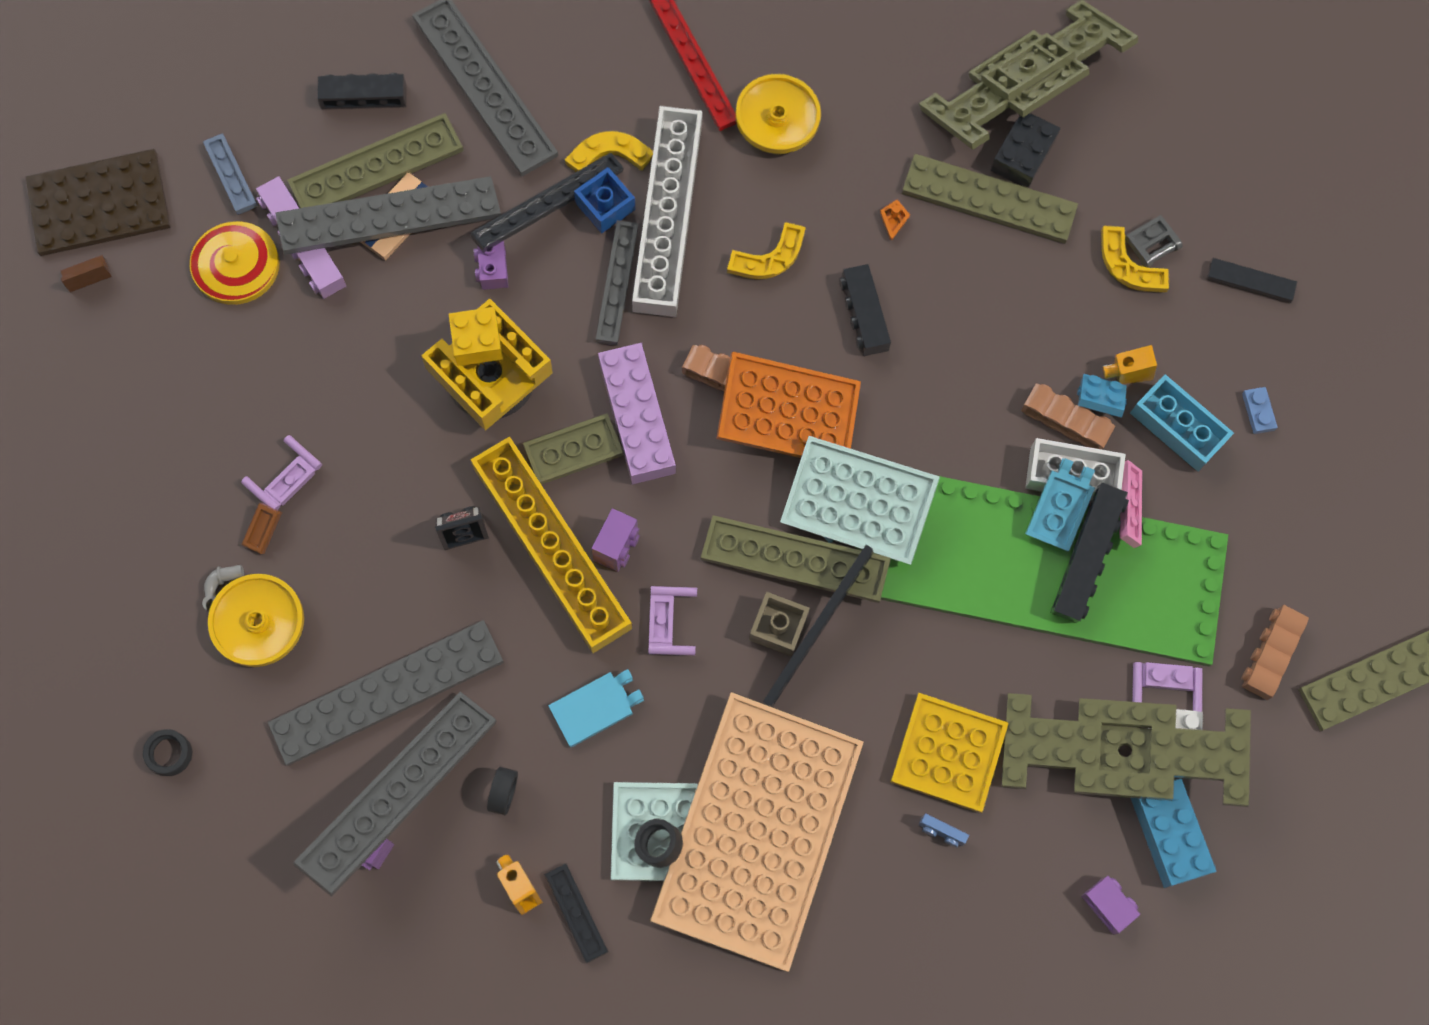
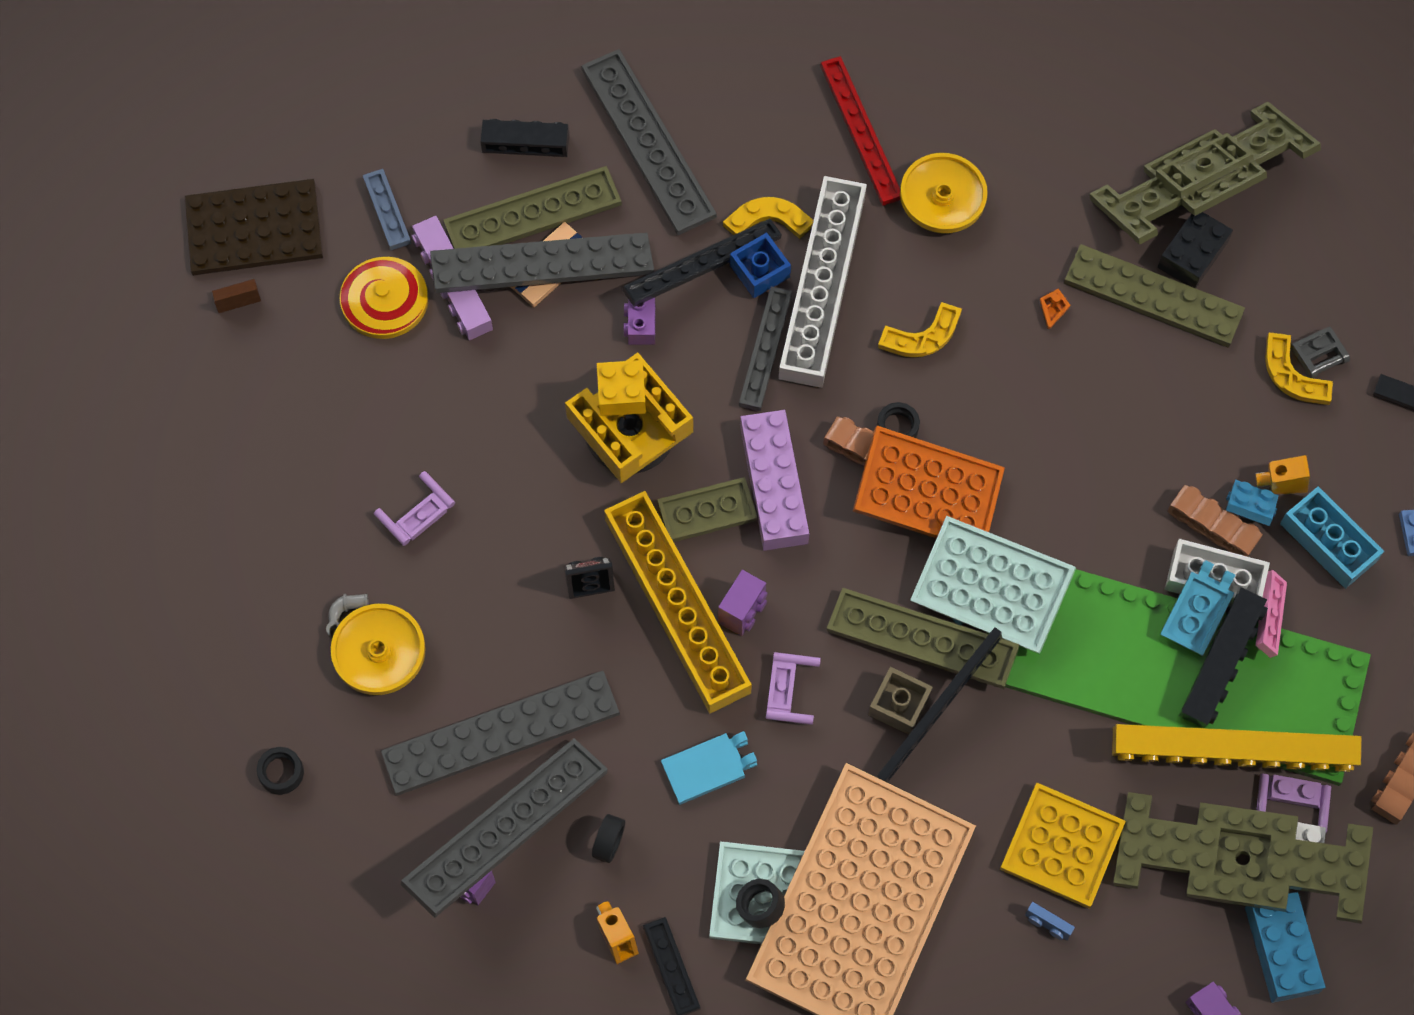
camera: 10 degrees right, 5 degrees down
(261, 528) = (390, 560): dark orange tile -> none
(755, 331) = (901, 409): none -> black tyre
(865, 310) = (1015, 396): black brick -> none
(1118, 640) = (1238, 746): none -> yellow brick

